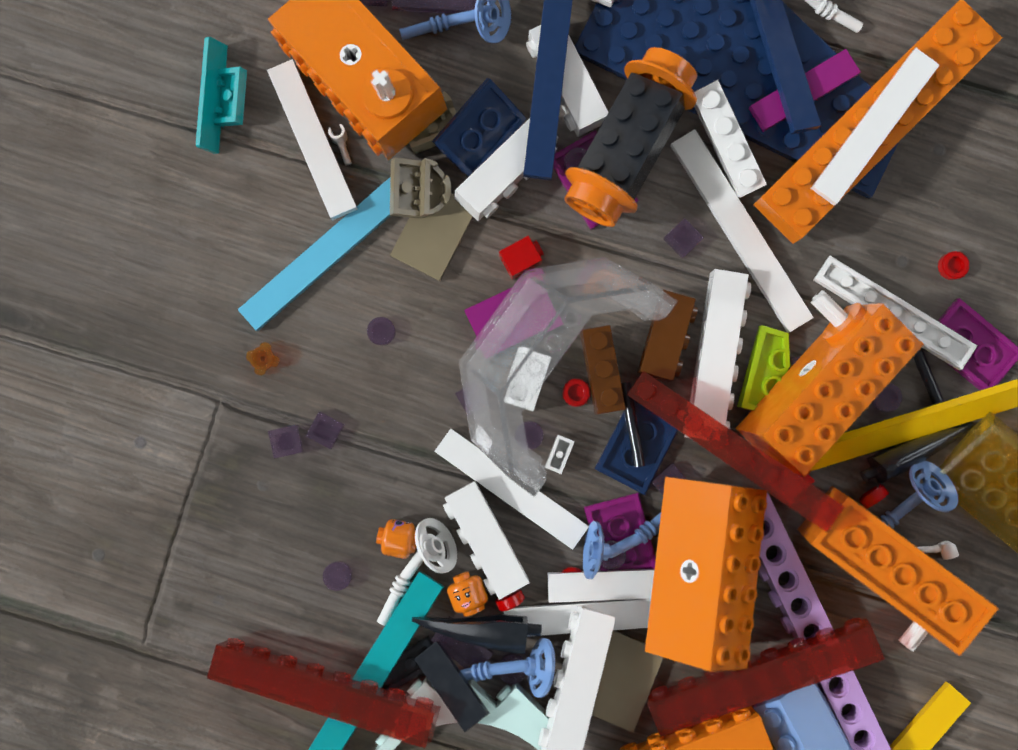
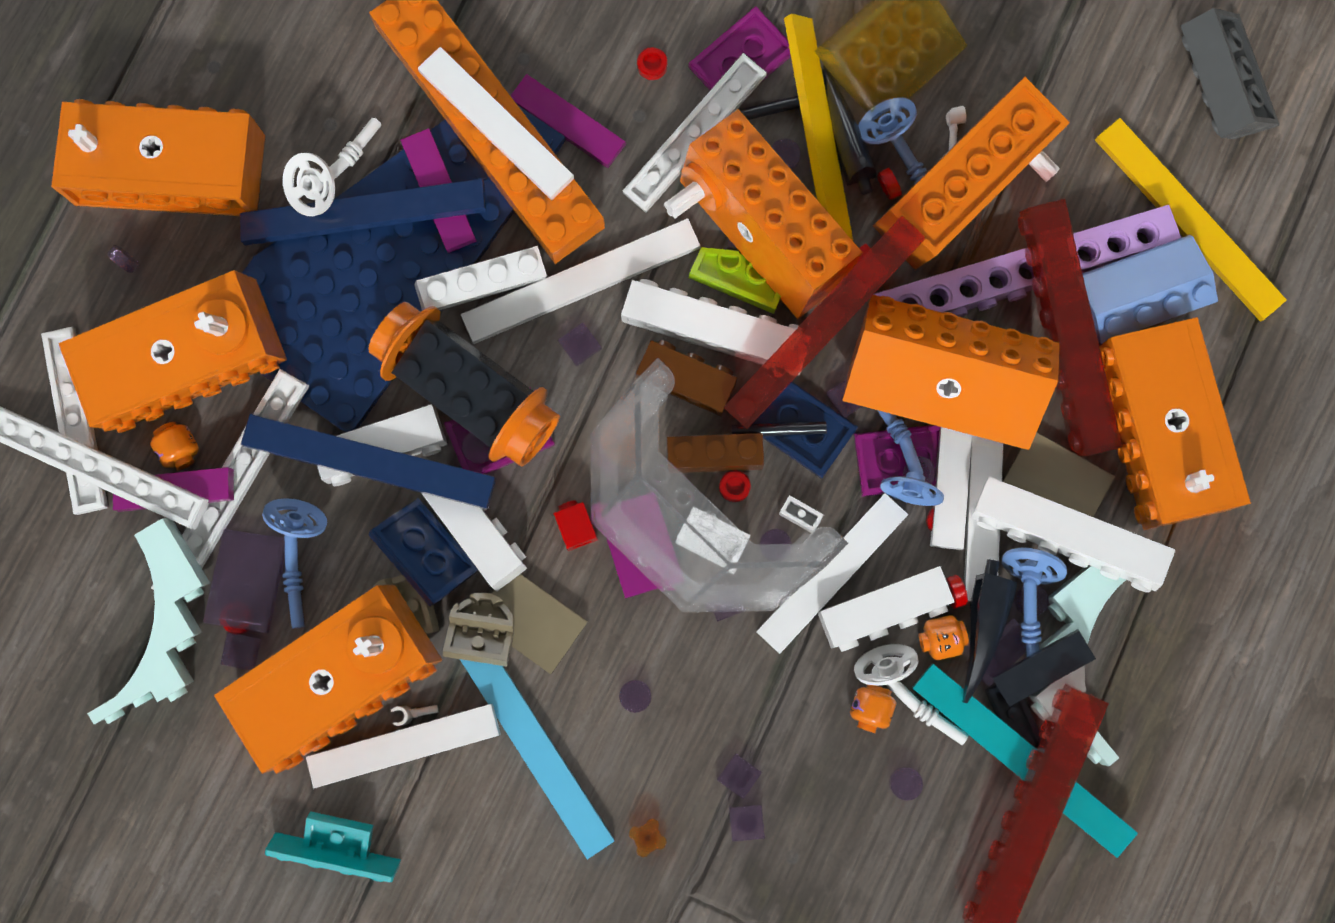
camera: 80 degrees left, 5 degrees down
(887, 197) = (568, 120): none -> magenta tile

